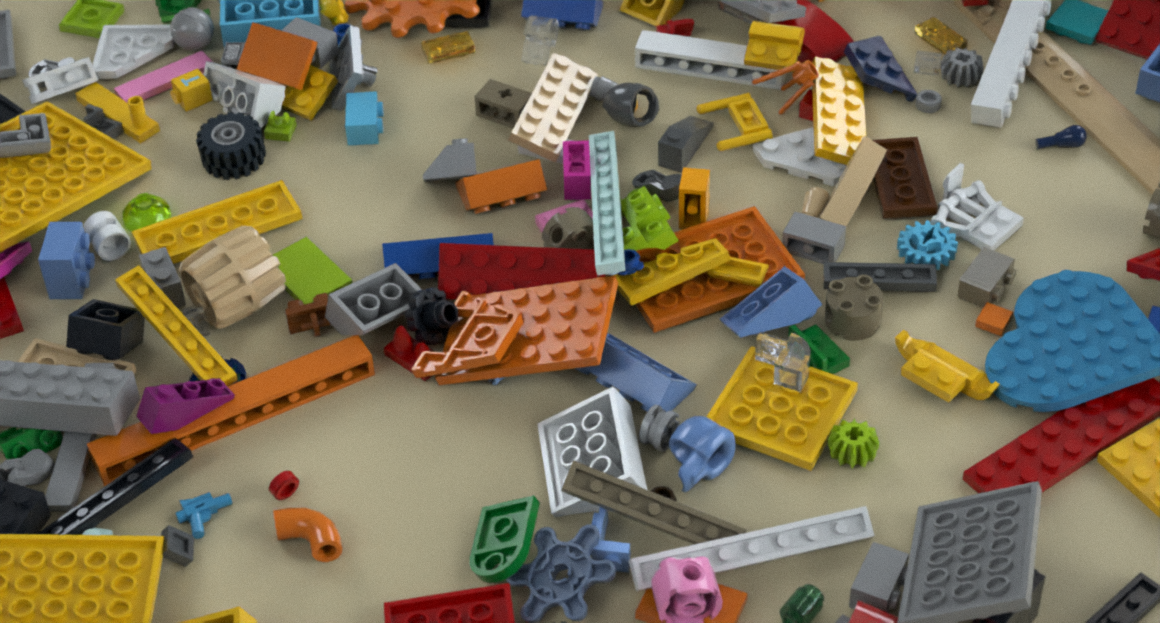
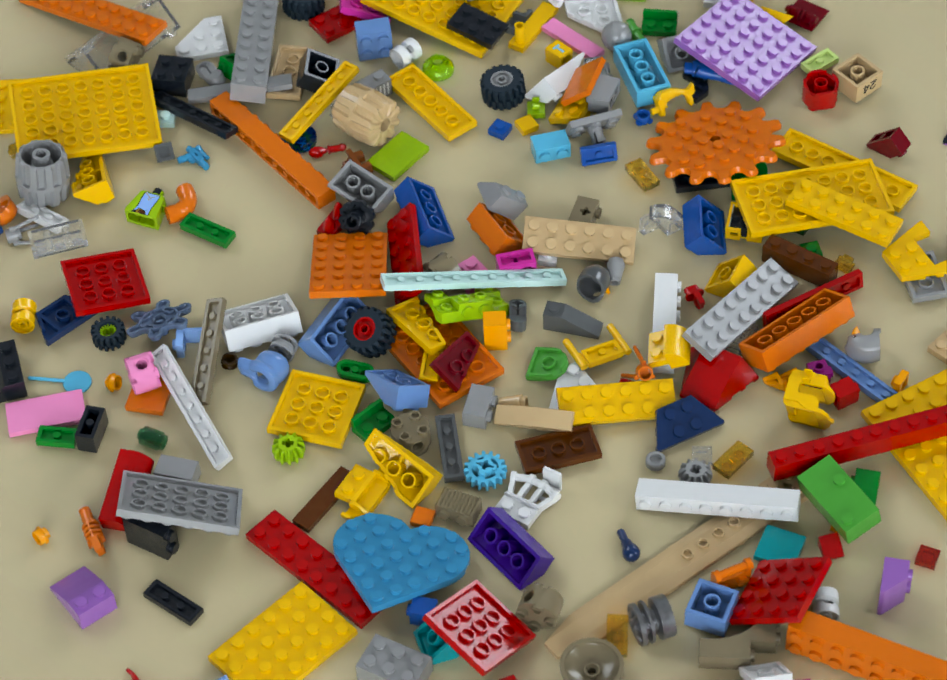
camera: 80 degrees right, 5 degrees up
(99, 152) = (477, 26): none -> black plate
(176, 405) = (255, 119): magenta slope -> none
(258, 358) = (319, 151): none -> red piece
(283, 485) = (215, 186): red tile -> none
(300, 576) = (147, 209): none -> lime torso
(301, 166) = (500, 129): none -> blue plate
(305, 140) = (526, 125): none -> yellow tile
(376, 504) = (207, 230): none -> green plate
(393, 77) = (598, 153): none -> blue tile
(479, 342) = (335, 242): orange wing -> none
(503, 538) = (183, 289): green plate -> none
(632, 262) = (416, 301): blue plate -> none
(665, 320) = (370, 332): none -> black wheel
(718, 358) = (355, 370): none -> green plate
(731, 236) = (455, 360): none -> dark red wing
(752, 169) = (547, 364): none -> bright green tile
(789, 359) = (345, 403): clear brick -> none
(926, 314) = (407, 473): none -> yellow wedge
(949, 419) = (320, 502): none -> reddish brown tile
(1061, 237) = (510, 547): none -> dark purple slope
(1127, 53) = (734, 576): none -> orange plate

